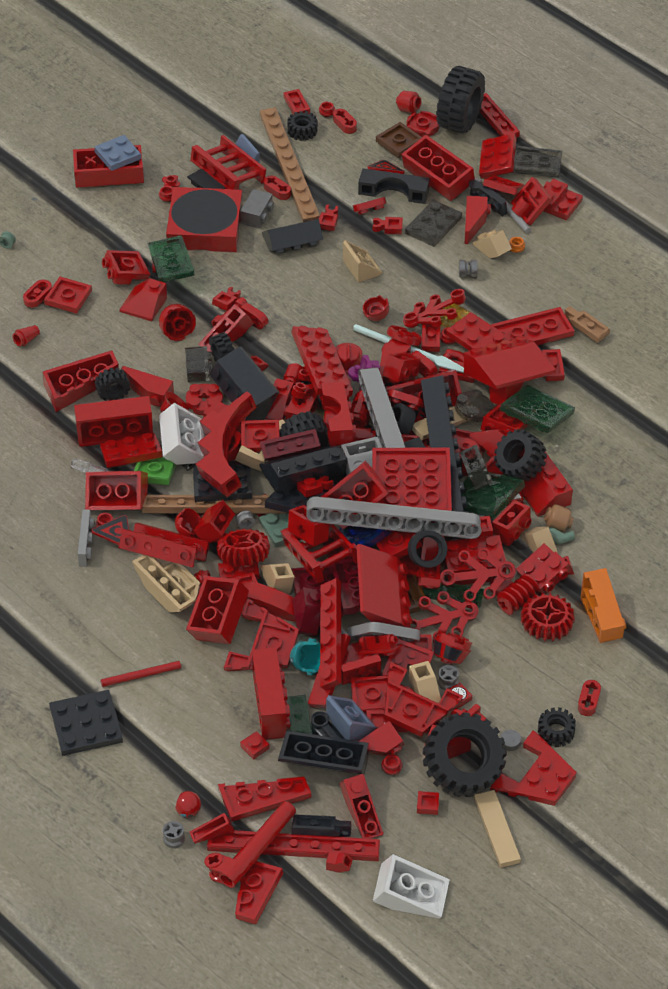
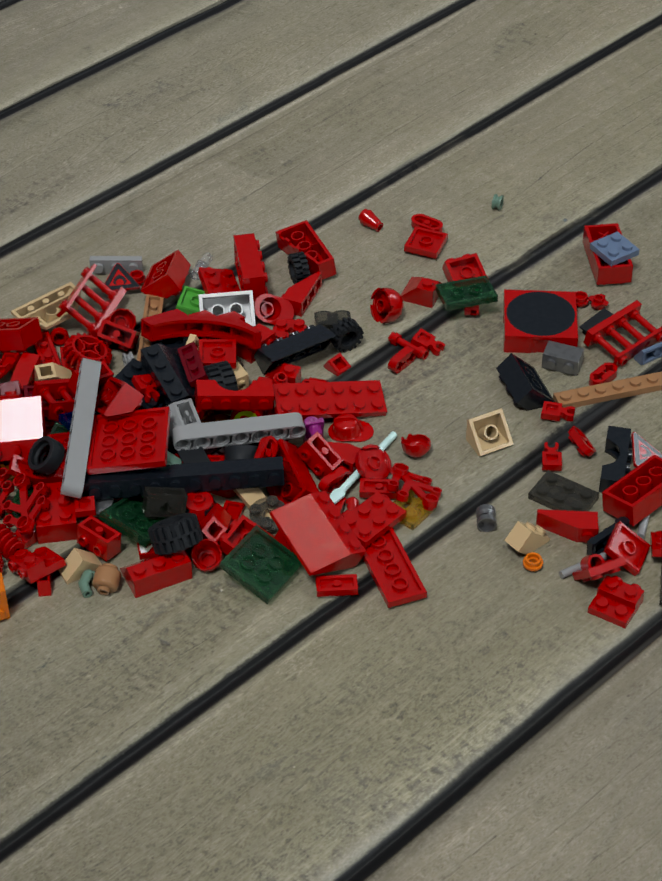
camera: 90 degrees right, 5 degrees down
(233, 323) = (382, 342): red slope -> none
(587, 324) = (402, 617): medium nougat hinge -> none

